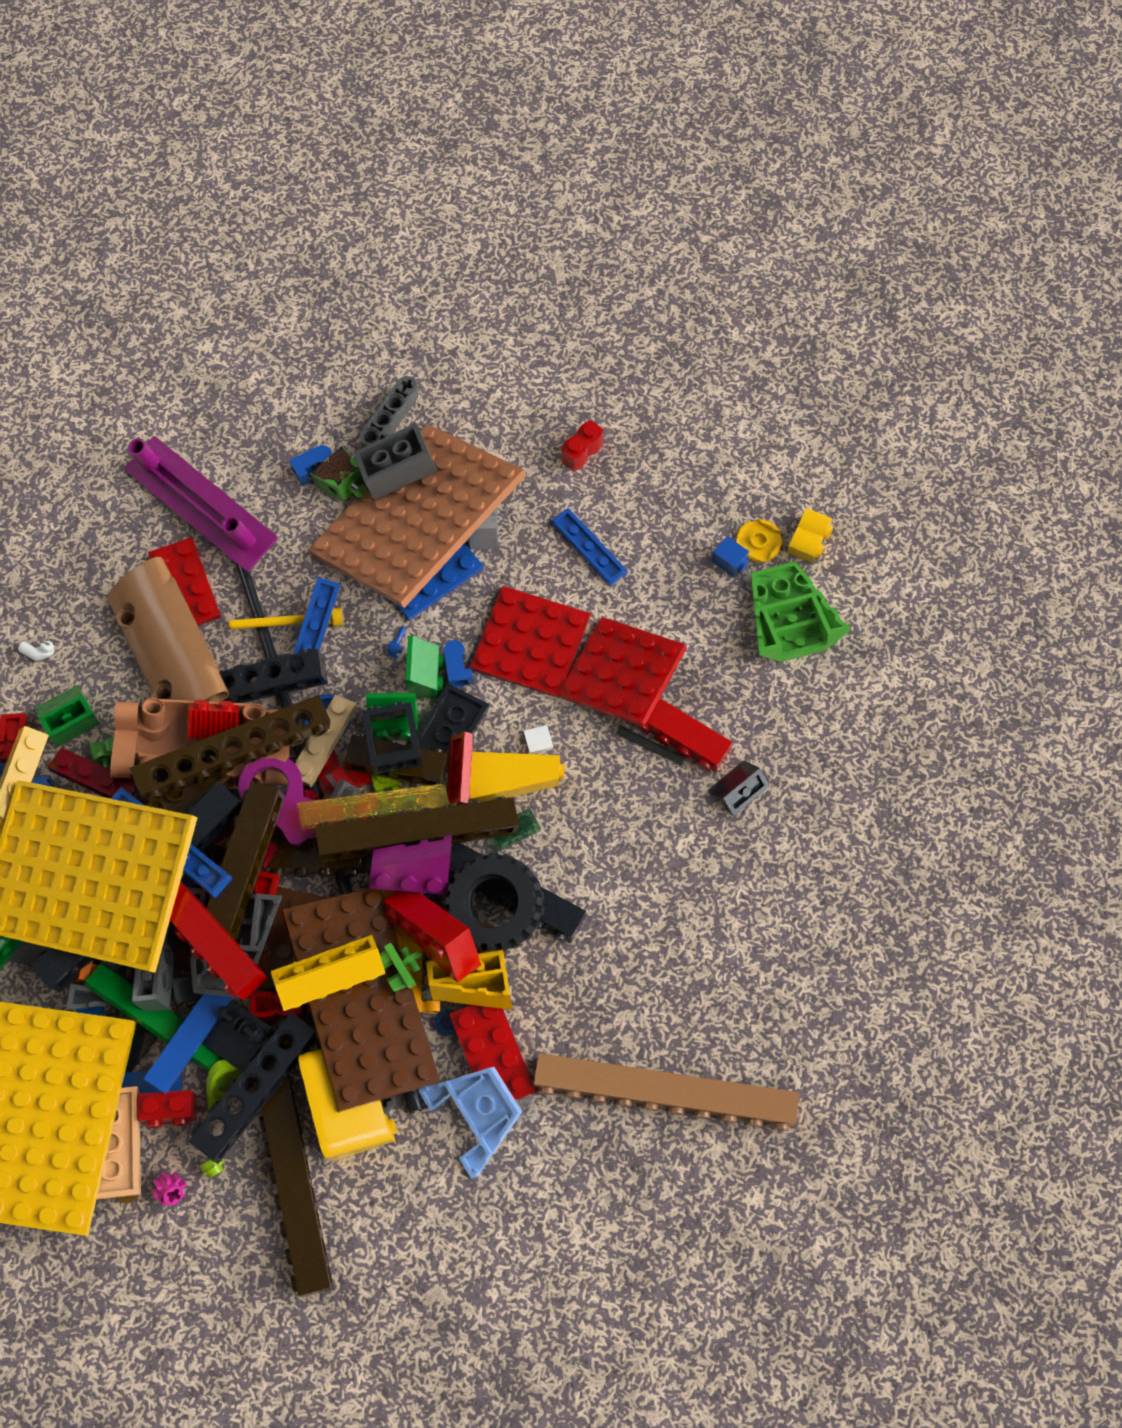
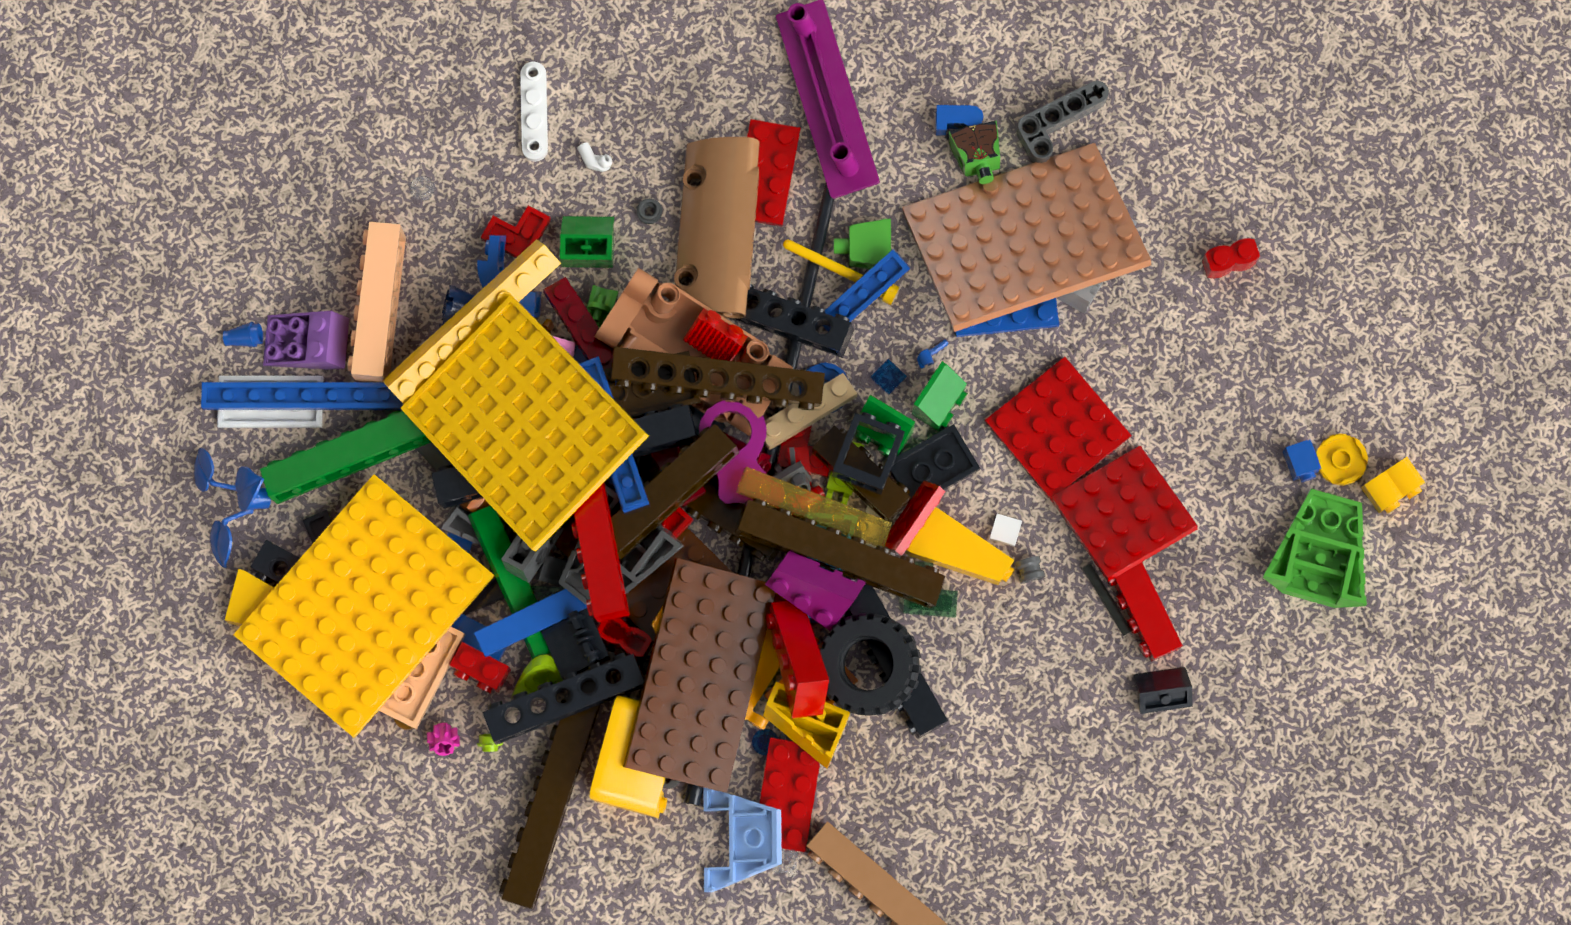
camera: 30 degrees right, 10 degrees up
(100, 660) = (649, 203): none -> dark grey plate
(294, 590) = (866, 243): none -> bright green torso
(328, 972) = (684, 642): yellow brick -> none
(373, 679) = (888, 376): none -> clear blue tile
(395, 461) = (1035, 172): dark grey brick -> none
(403, 978) = (749, 683): bright green hips -> none
(454, 657) = (975, 402): blue leg -> none
(576, 757) = (1029, 569): none -> dark grey wheel
(589, 547) = (1172, 366): blue tile -> none

